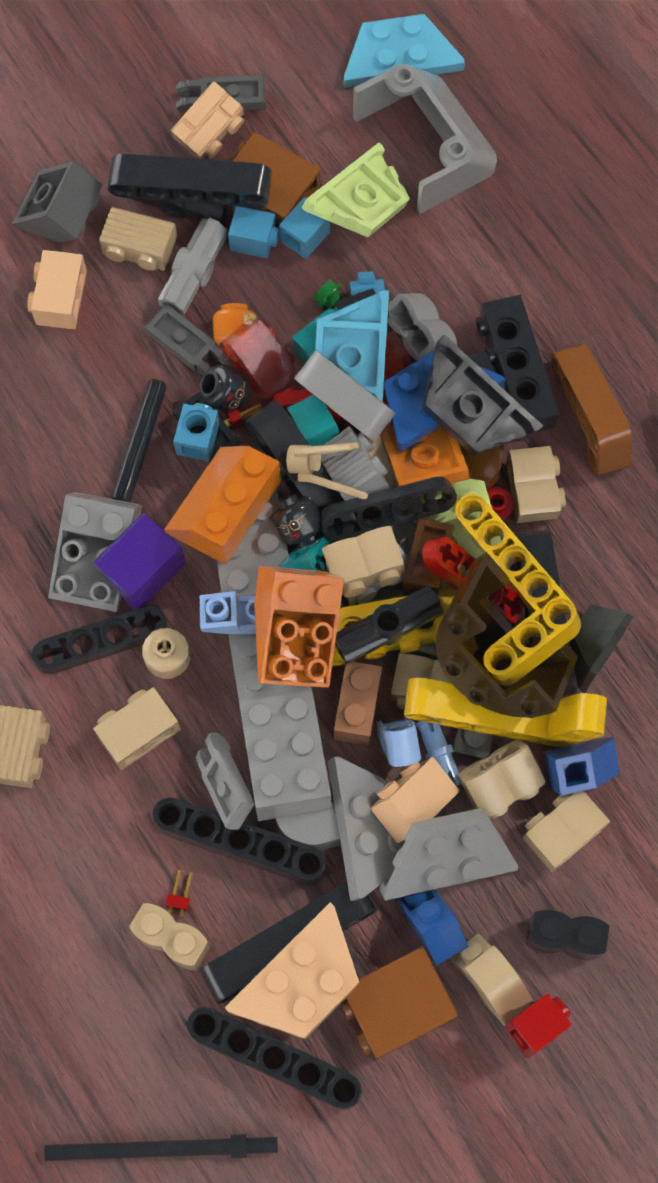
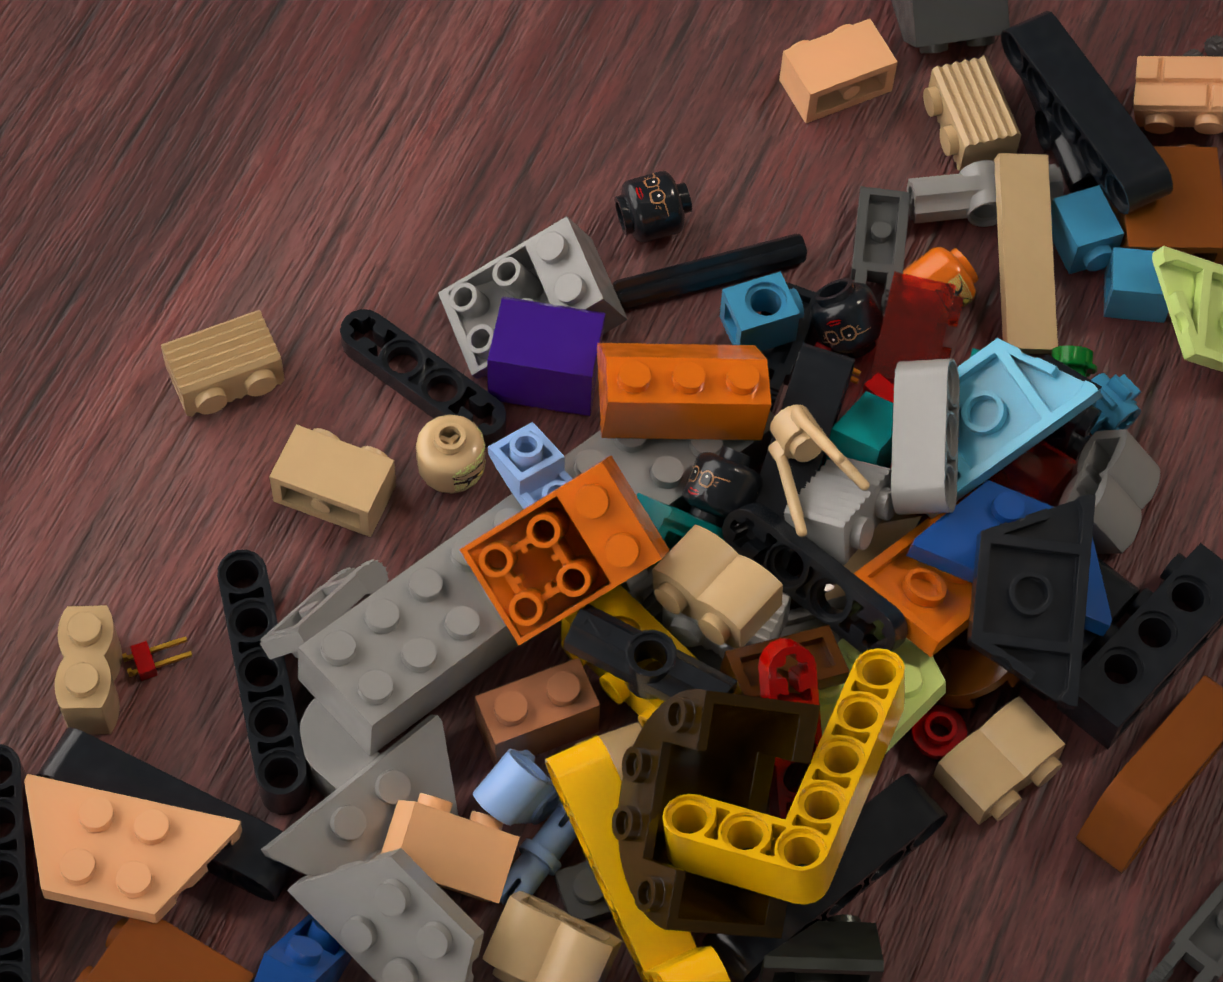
camera: 55 degrees right, 10 degrees down
(79, 445) = (652, 206): none -> black head
(249, 271) = (1026, 252): none -> tan tile

